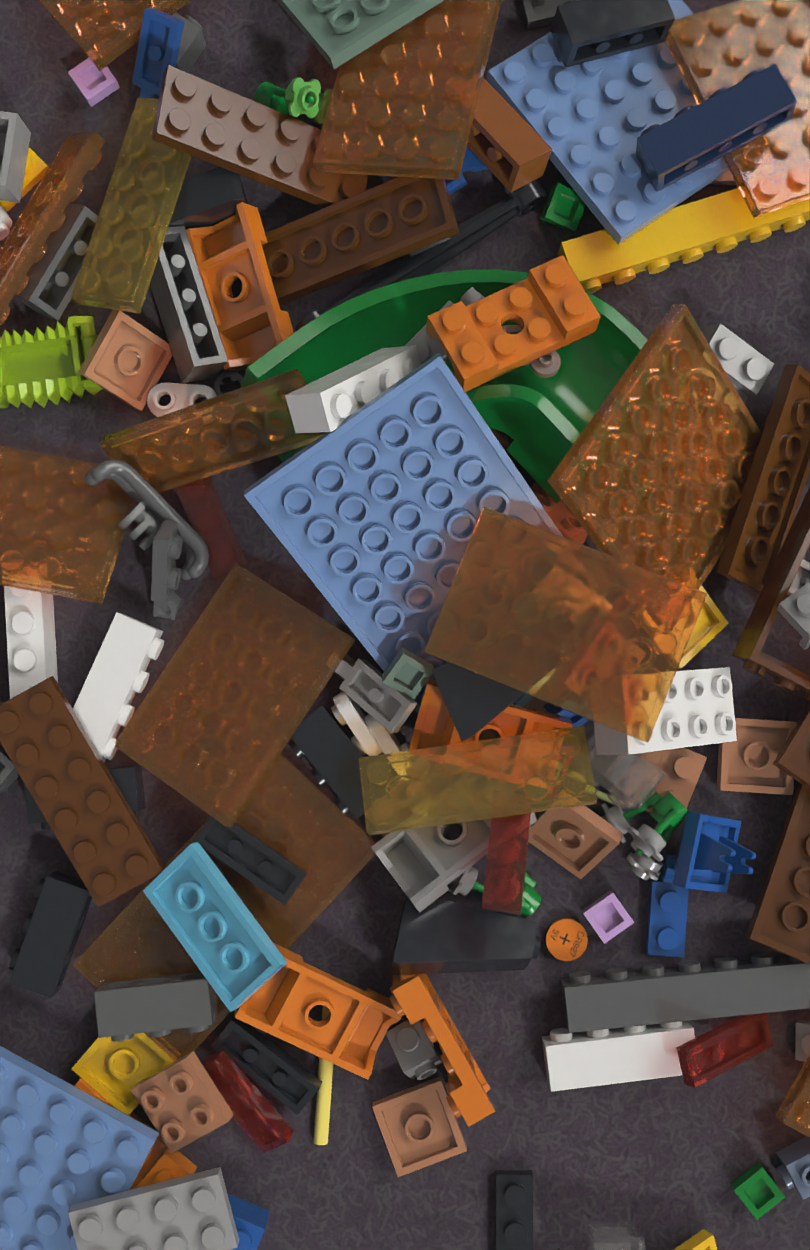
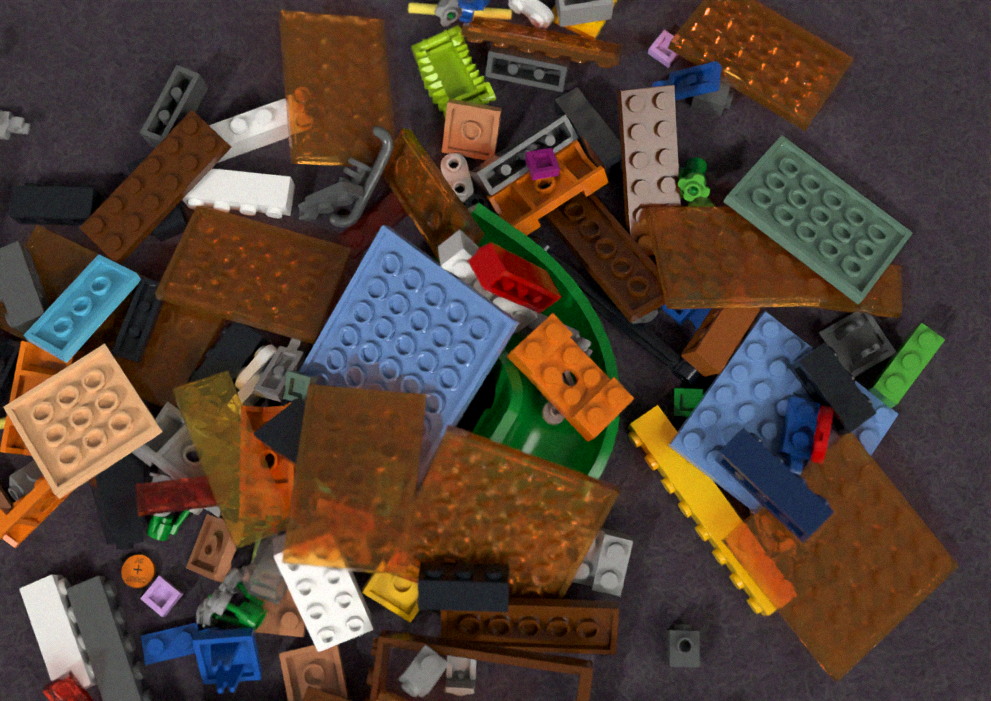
camera: 80 degrees right, 10 degrees down
(132, 218) = (563, 100): clear yellow plate -> none
(208, 279) = (542, 163): none -> magenta plate
(368, 349) = (513, 278): none -> red brick
(371, 959) = (82, 420): none -> light nougat plate
(651, 83) = (798, 432): none -> blue plate
(671, 49) = (821, 435): none -> red tile
(721, 537) = (463, 586): none -> black brick

